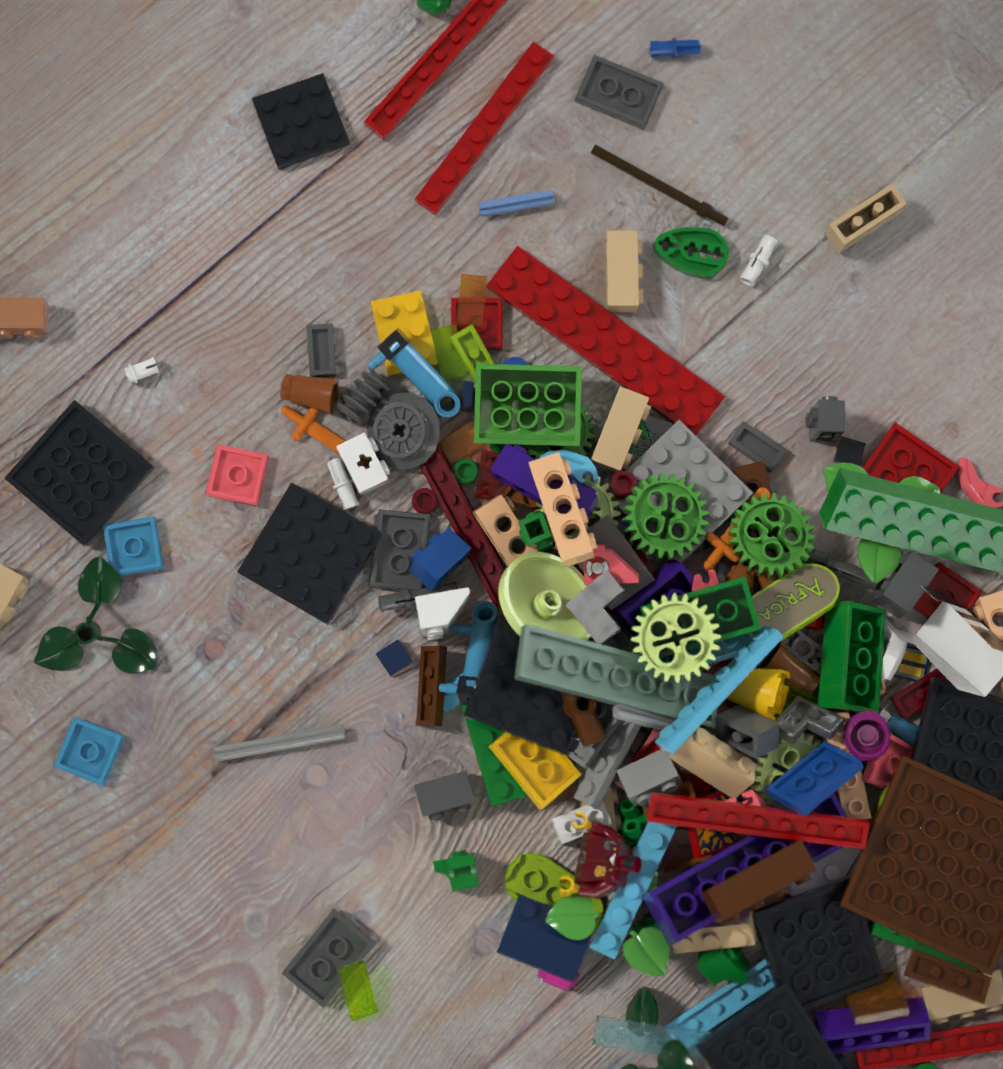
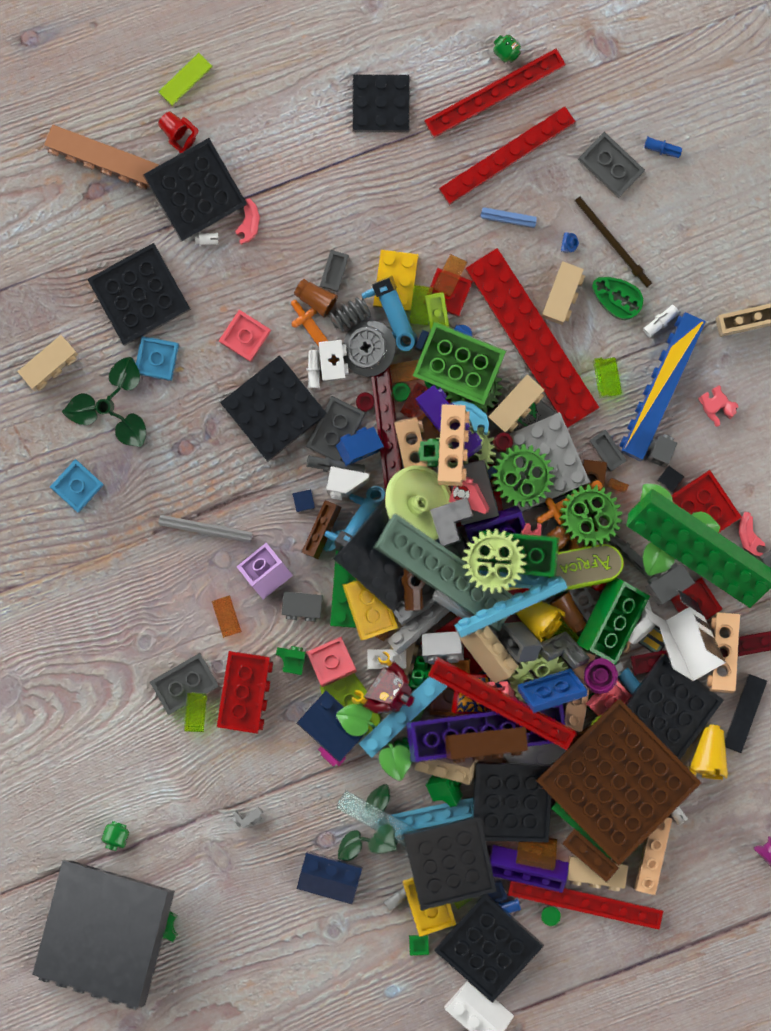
camera: 30 degrees right, 5 degrees up
(39, 181) = (185, 79): none -> lime tile
(50, 246) = (176, 128): none -> red piece
(103, 312) = (195, 189): none -> black plate
(191, 329) = (251, 222): none -> coral piece
(350, 847) = (226, 616): none -> clear orange tile
(378, 768) = (264, 571): none -> lavender slope
(412, 938) = (244, 692): none -> red bracket
(510, 853) = (331, 661): none -> coral tile
(605, 206) = (569, 243): none -> blue plate
(718, 355) = (607, 377): none -> clear neon green panel
(787, 485) = (617, 485): none -> clear orange tile
(793, 341) = (662, 387): none -> blue brick
(865, 341) = (719, 401): none -> coral animal

